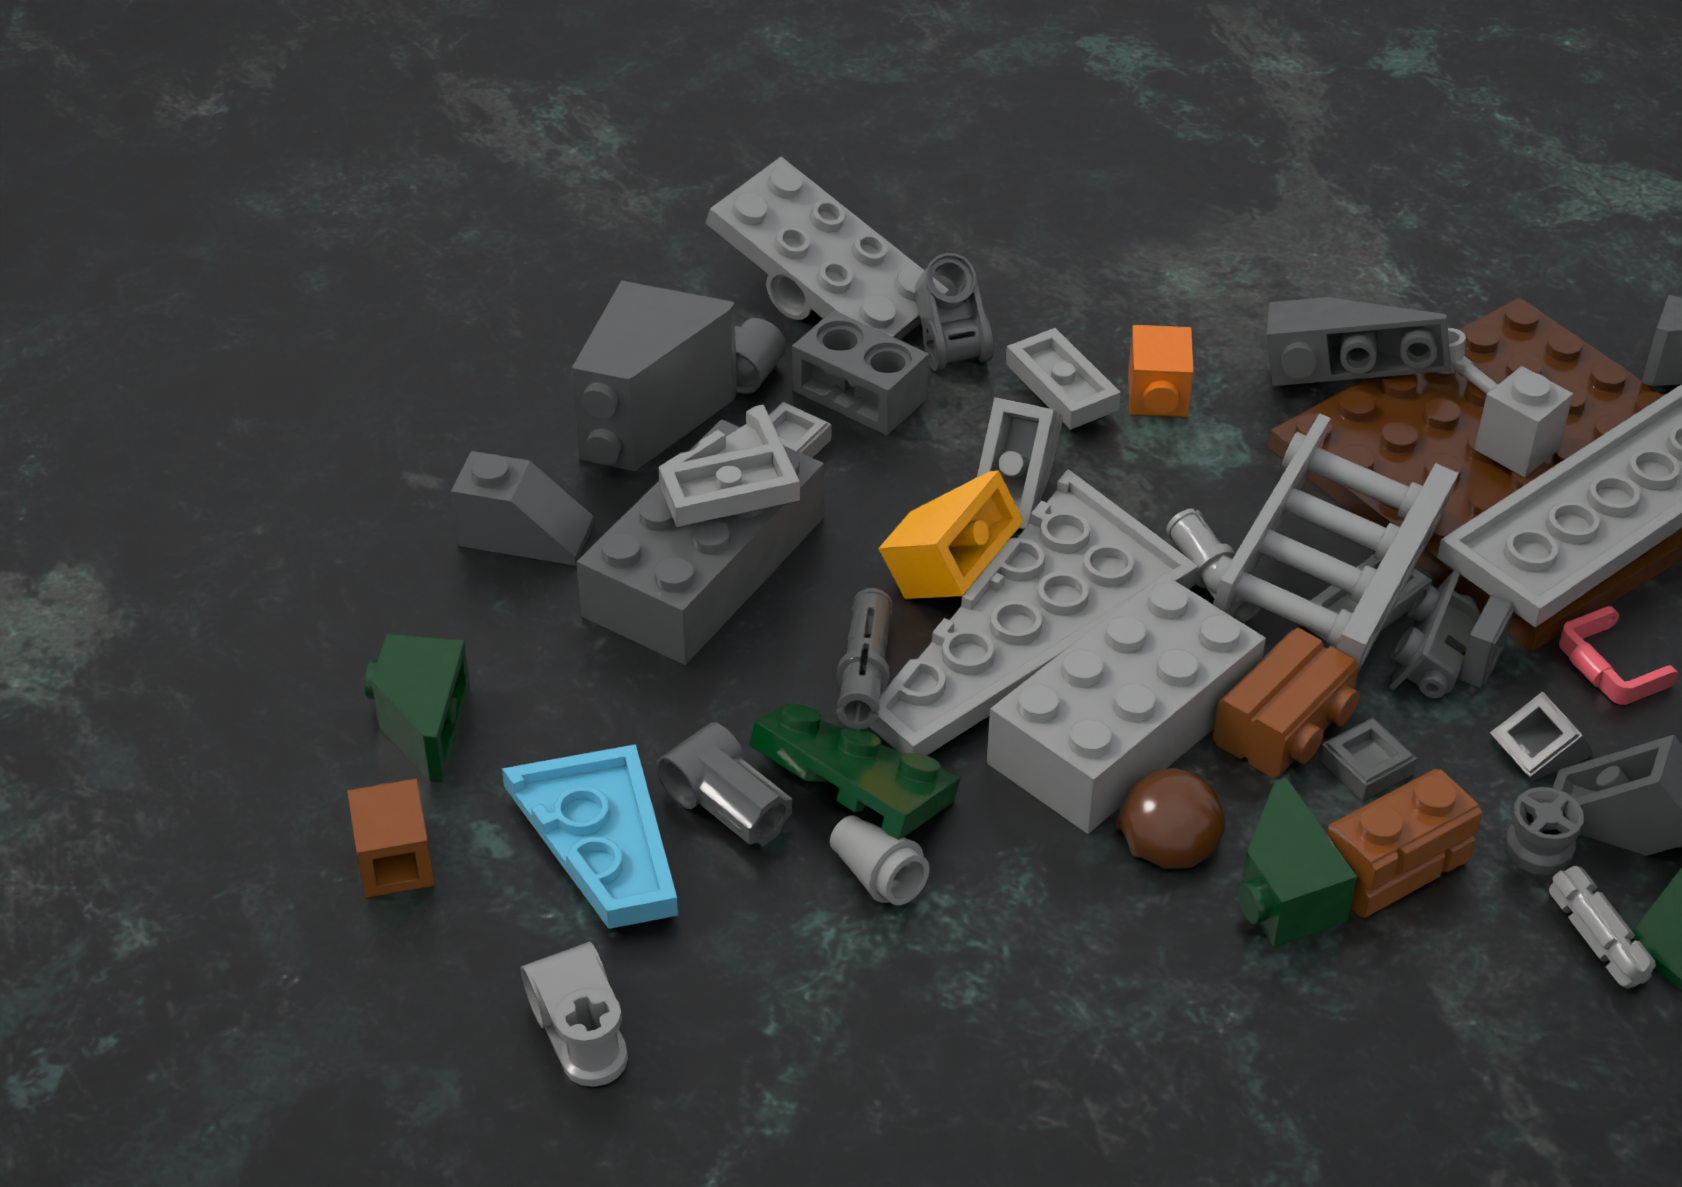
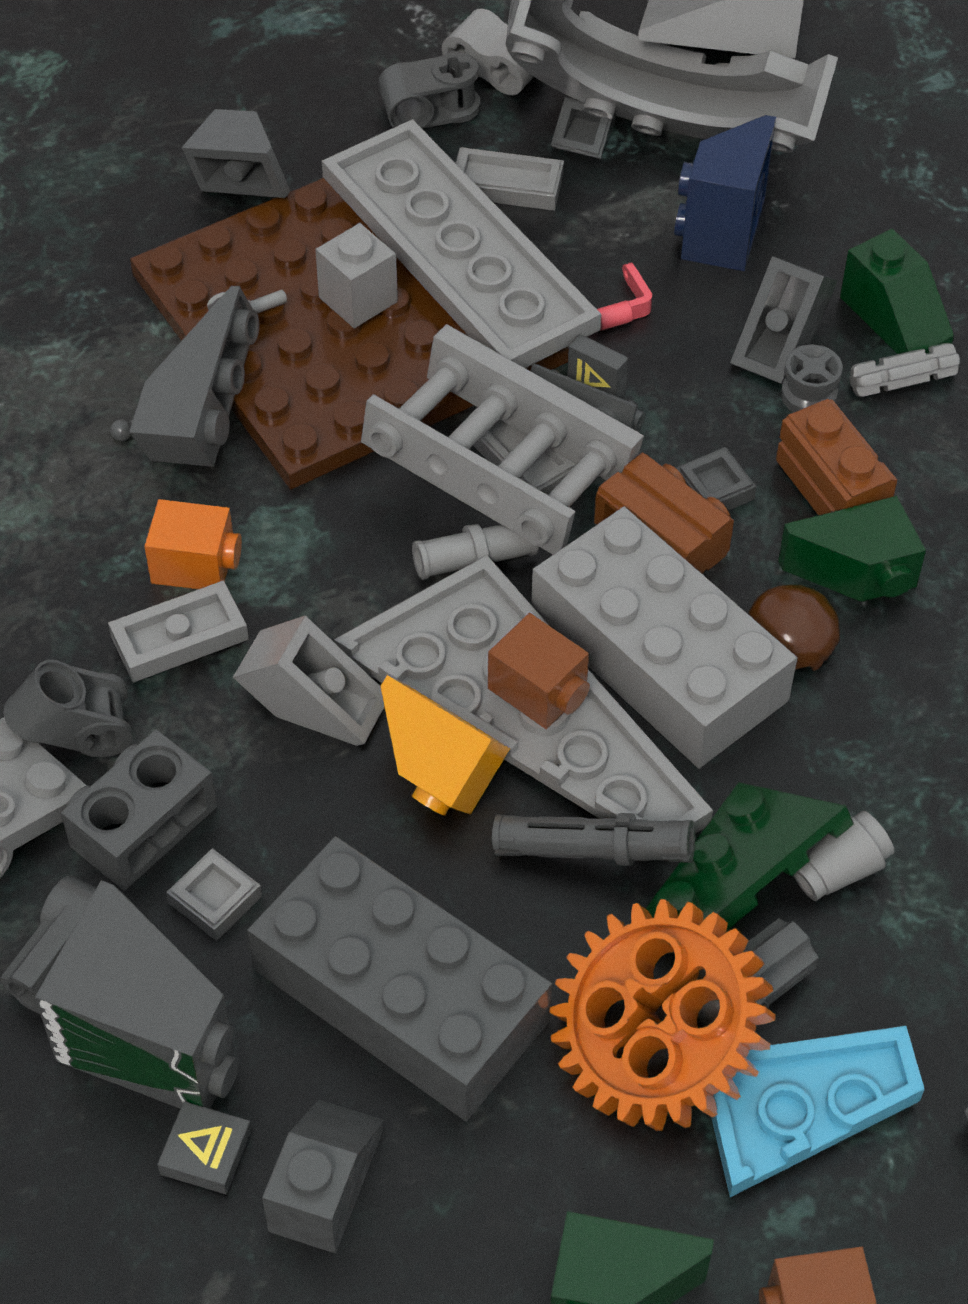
camera: 85 degrees left, 10 degrees up
(549, 448) = (204, 1147): none -> dark grey tile
(666, 700) = (699, 1058): none -> orange gear
(730, 473) = (380, 907): light grey wing -> none
(1039, 588) = (538, 671): none -> dark orange brick
(1541, 739) = (698, 364): dark grey slope -> none

